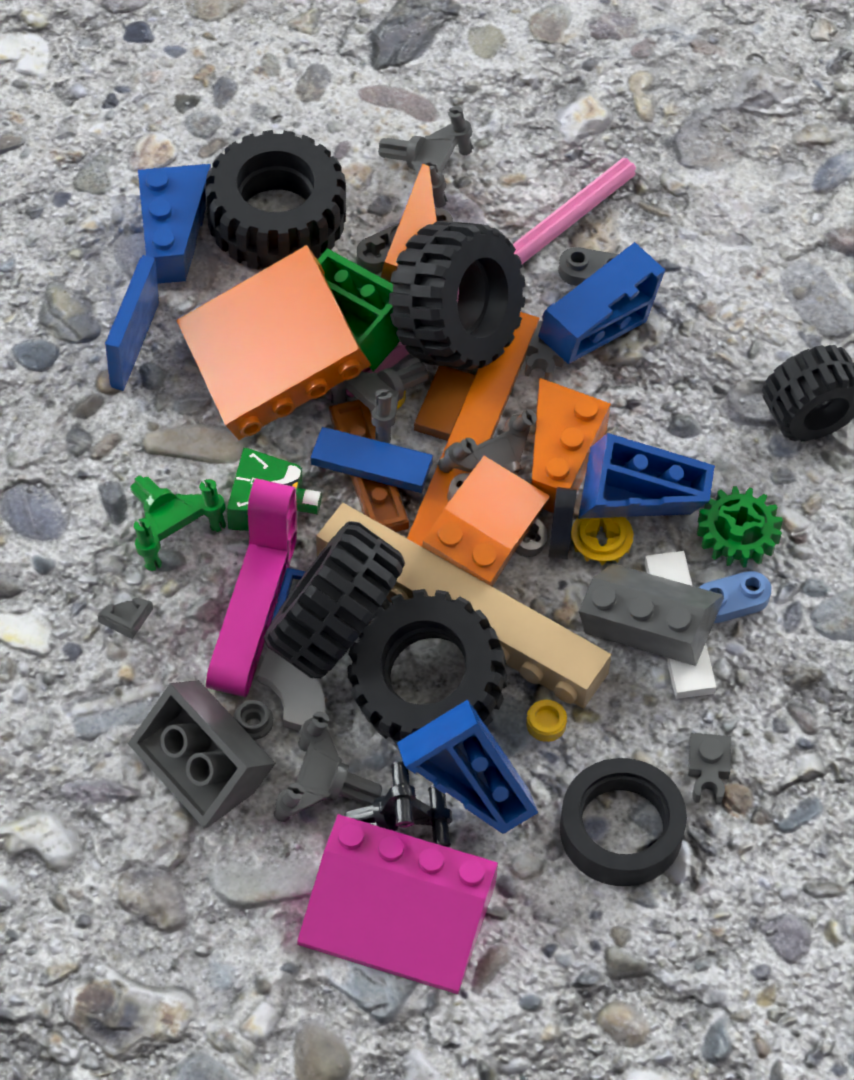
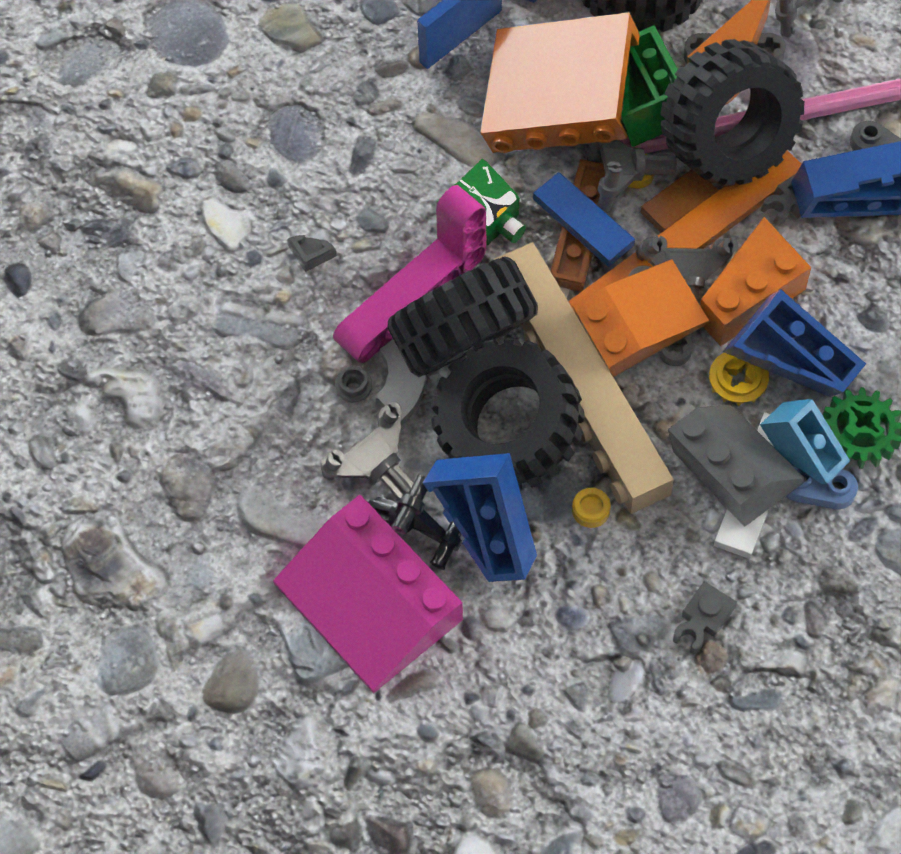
camera: 35 degrees right, 5 degrees up
(170, 512) = (392, 183): green axle -> none
(200, 752) = (294, 388): dark grey slope -> none
(562, 523) = (706, 348): black beam -> none
(628, 776) = (609, 581): black tyre -> none
(702, 559) = (805, 439): none -> dark azure slope

